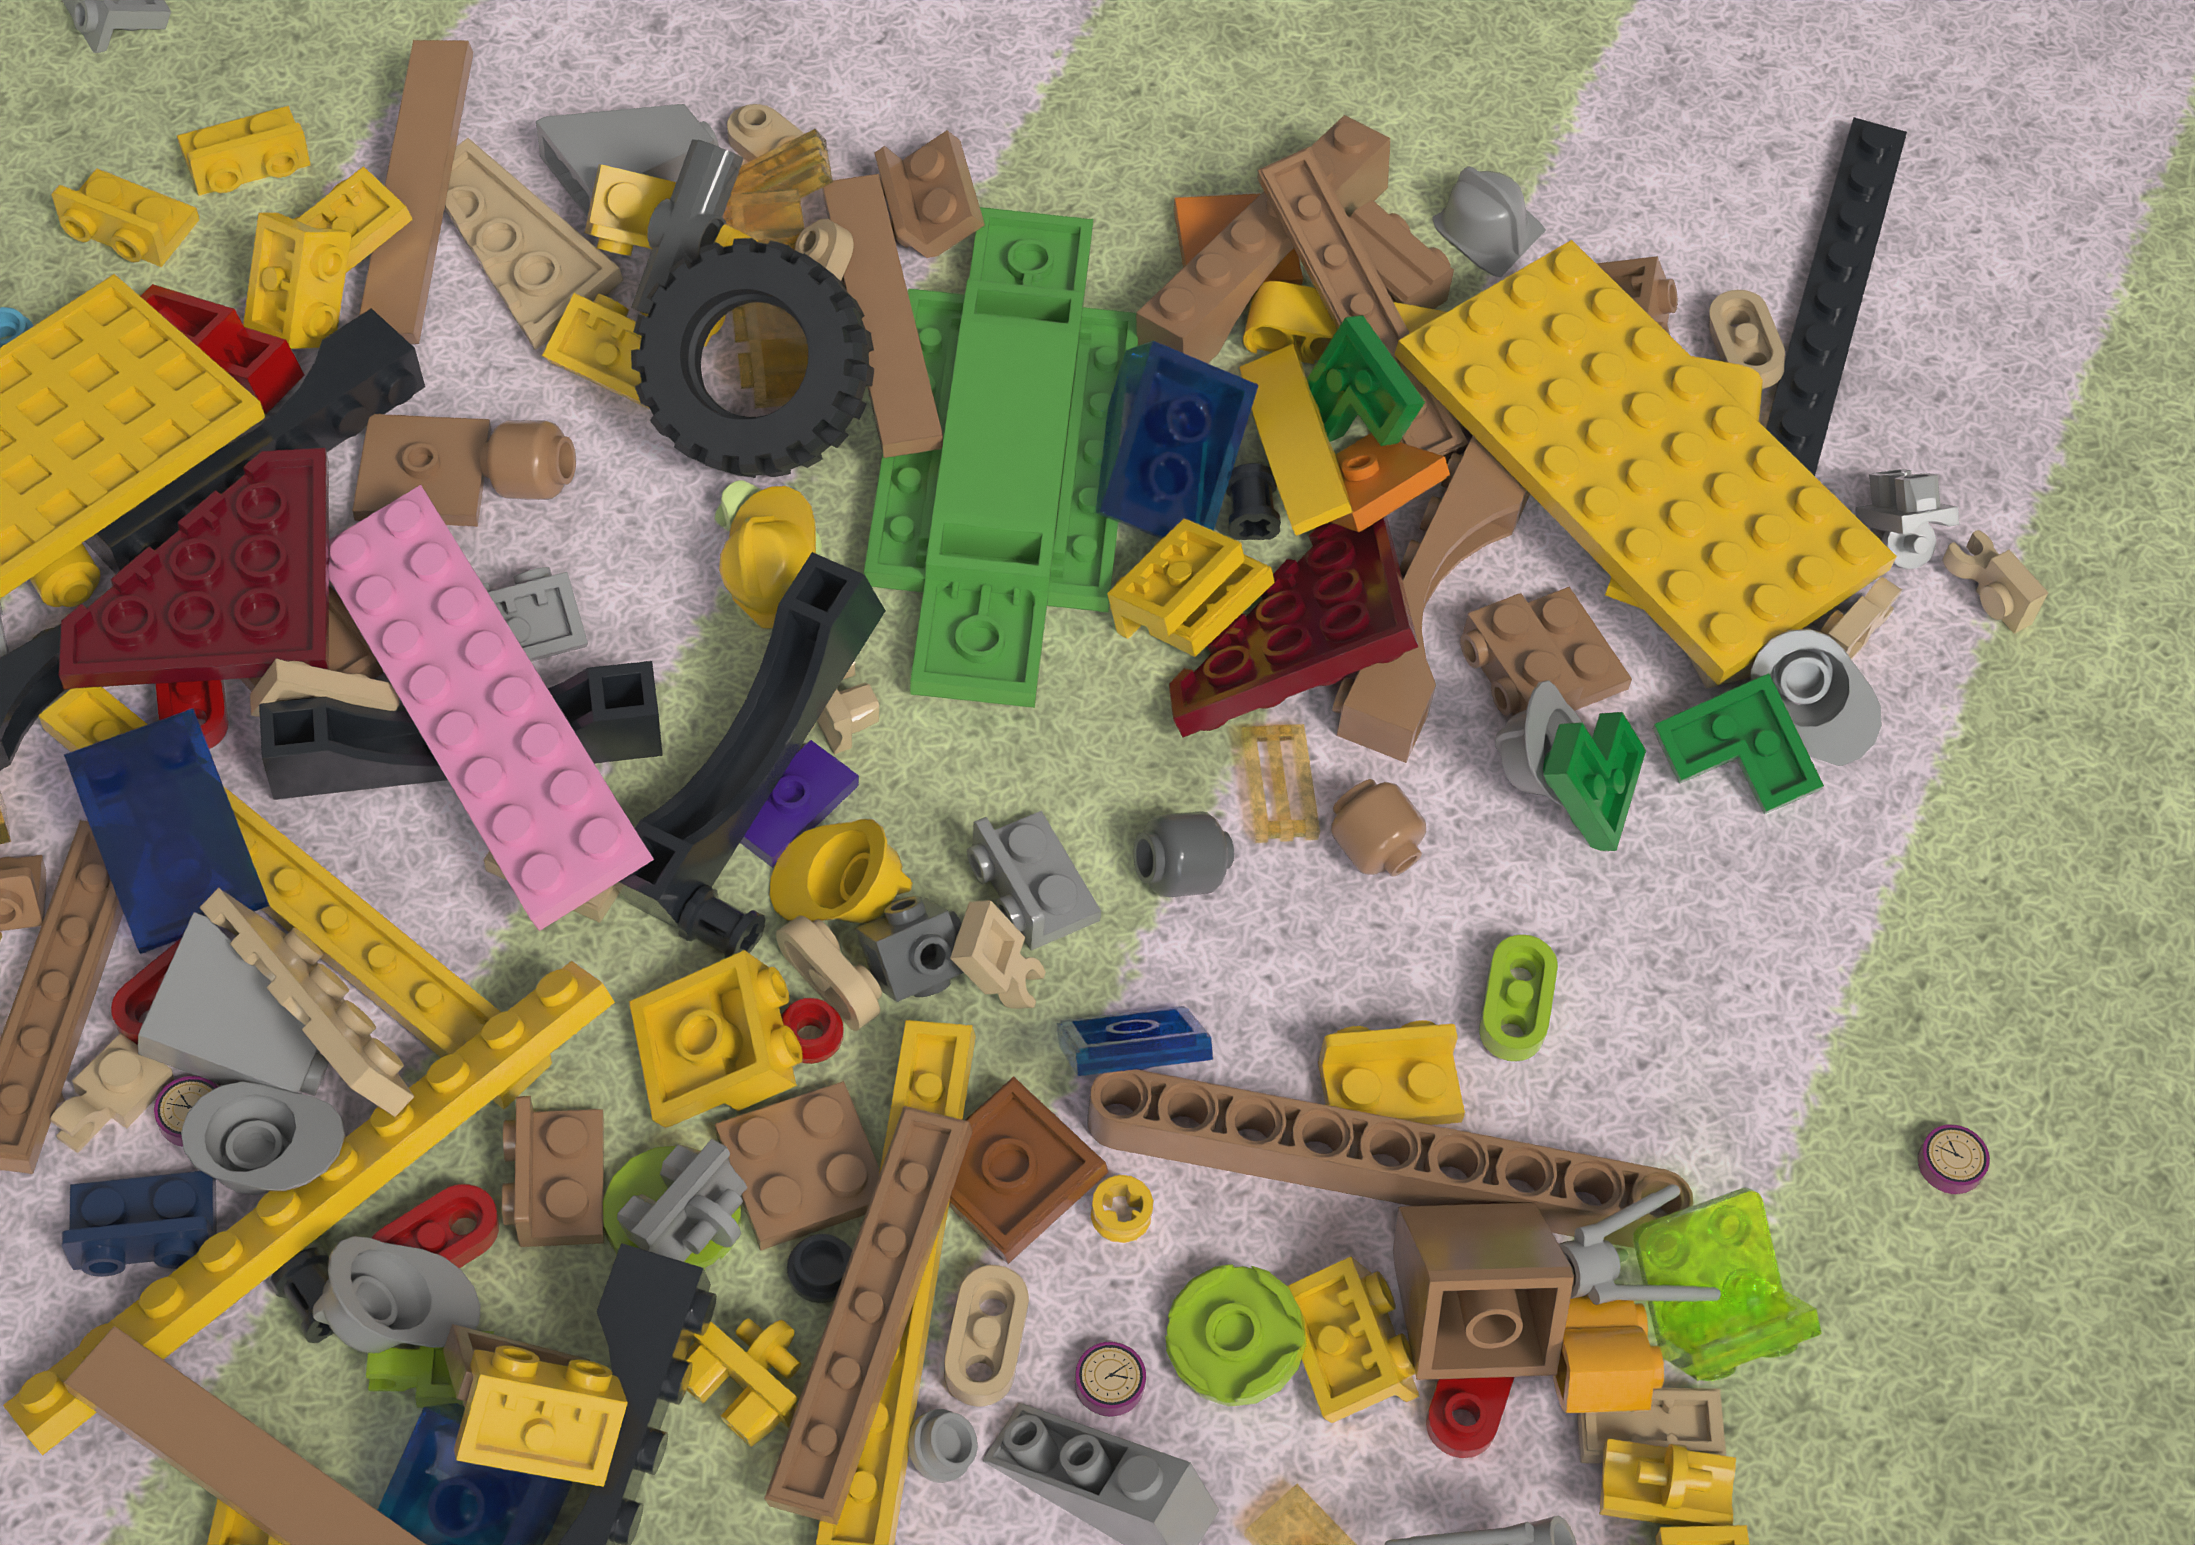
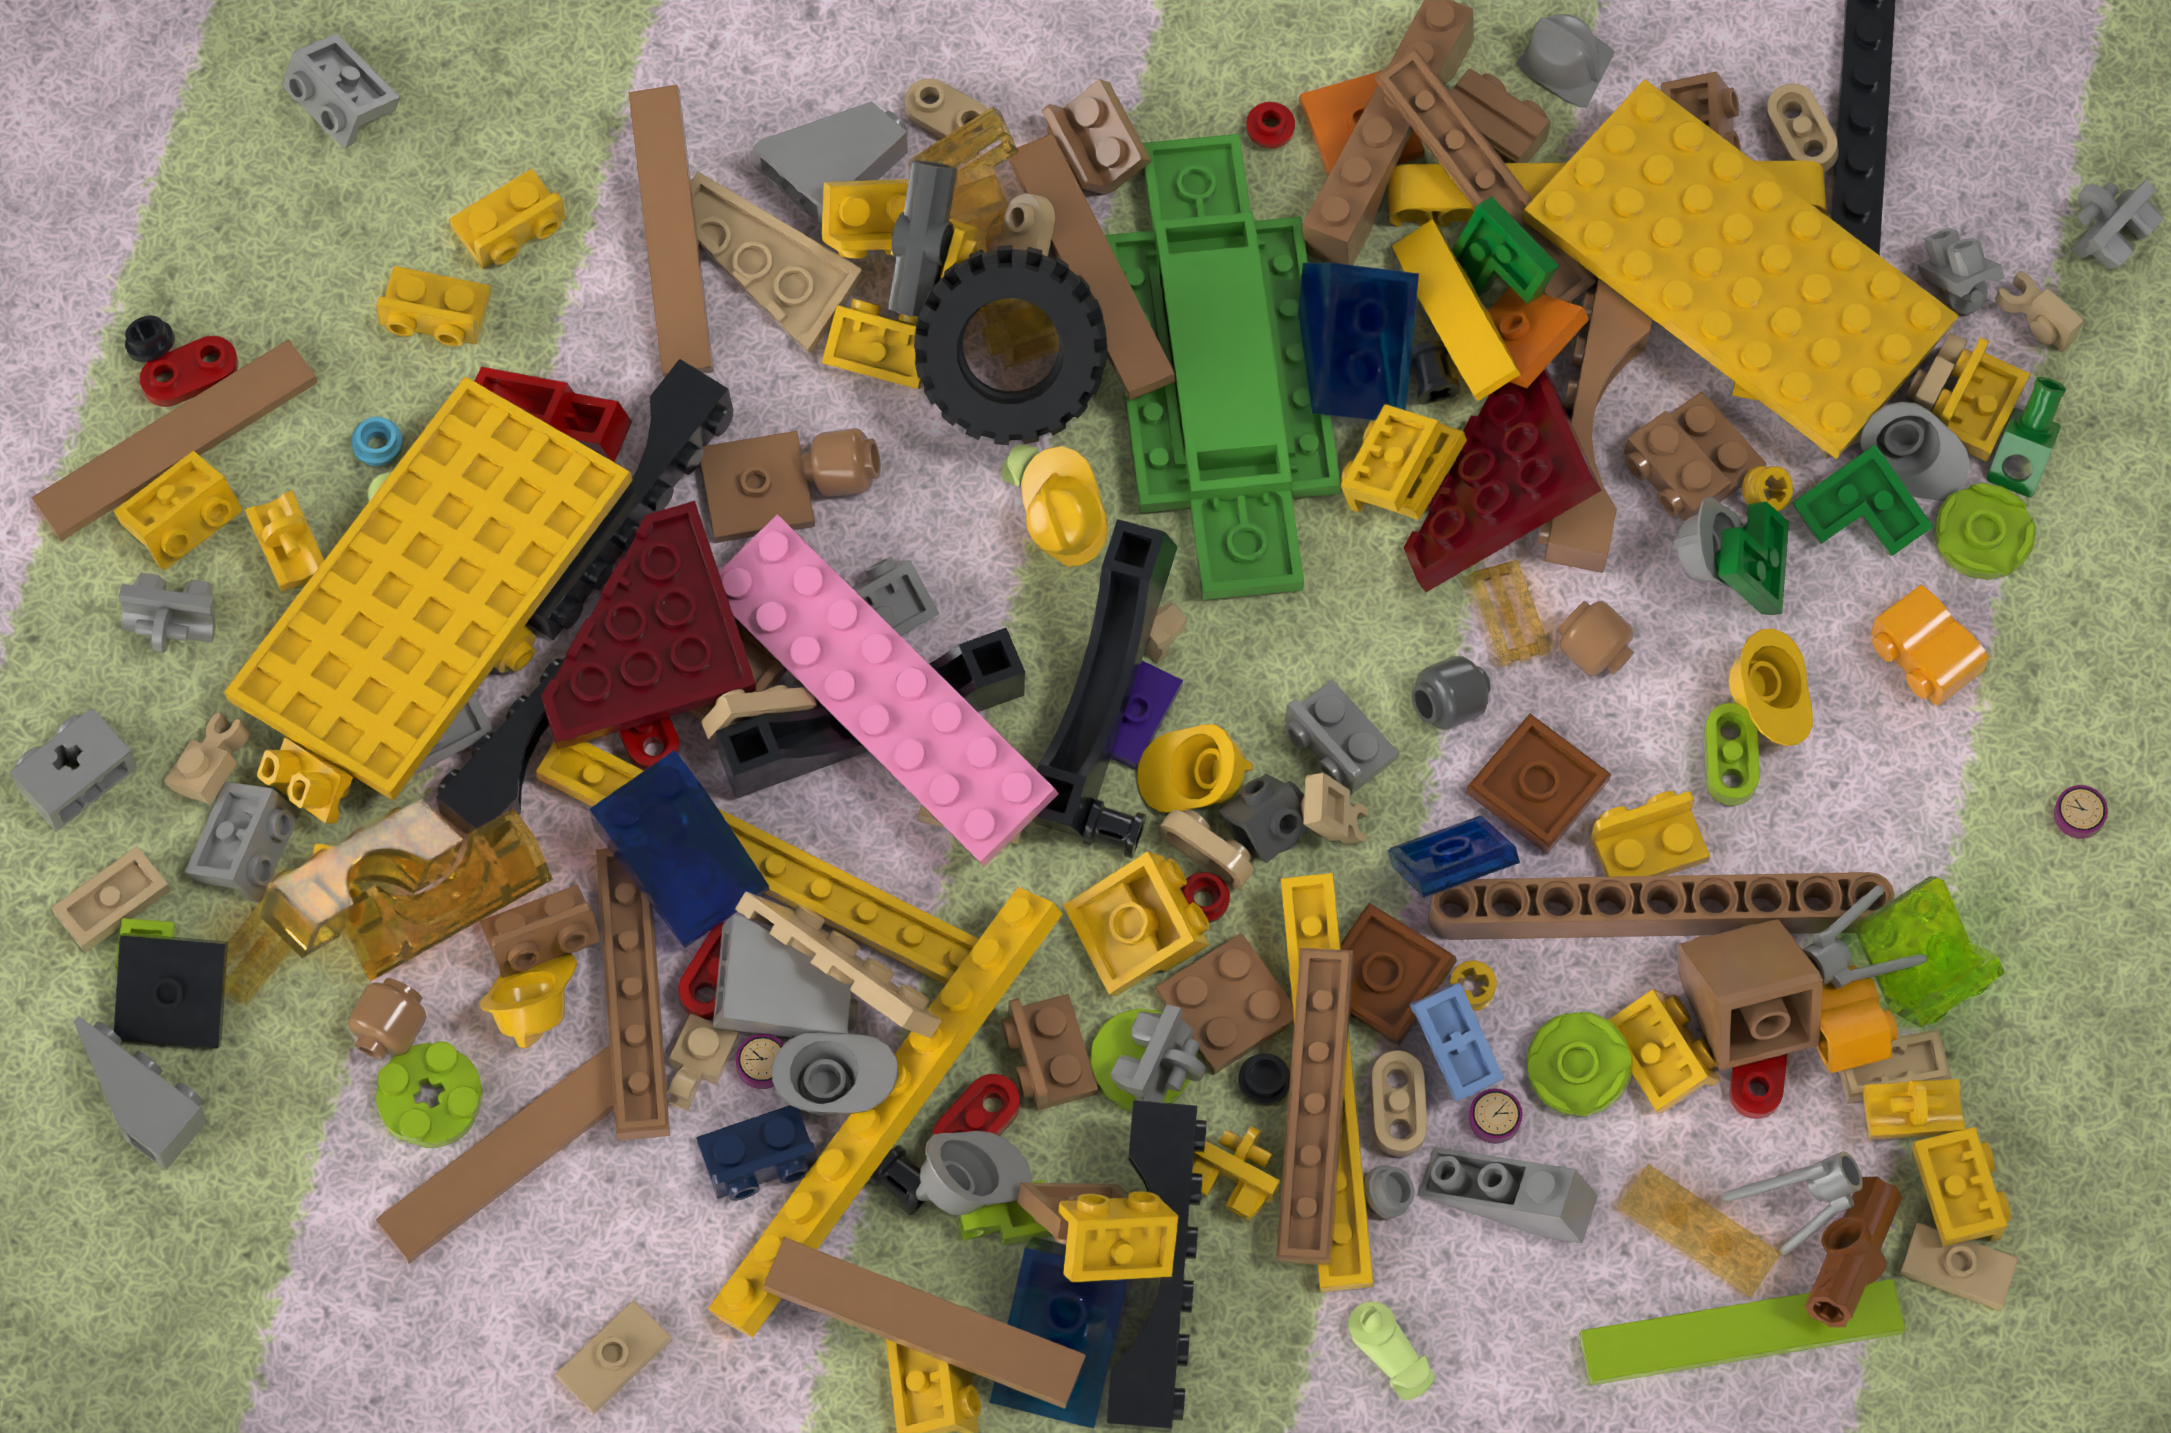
camera: 10 degrees left, 10 degrees up
(296, 280) = (606, 345): yellow bracket -> none
(362, 209) = (626, 286): yellow bracket -> none
(1077, 1267) = (1457, 1041): none -> medium blue hinge
(1129, 232) = (1270, 136): none -> red plate
(1266, 983) = (1538, 783): none -> dark orange plate
(1587, 924) = (1773, 686): none -> yellow piece
(1643, 698) = (1780, 490): none -> yellow bush
(1793, 921) = (1928, 645): none -> light orange brick
(1879, 826) = (1976, 545): none -> lime tile
(1908, 657) = (1980, 399): none -> yellow bracket
(1961, 709) = (2031, 435): none -> green bracket
(2088, 483) = (2129, 209): none -> light grey hips

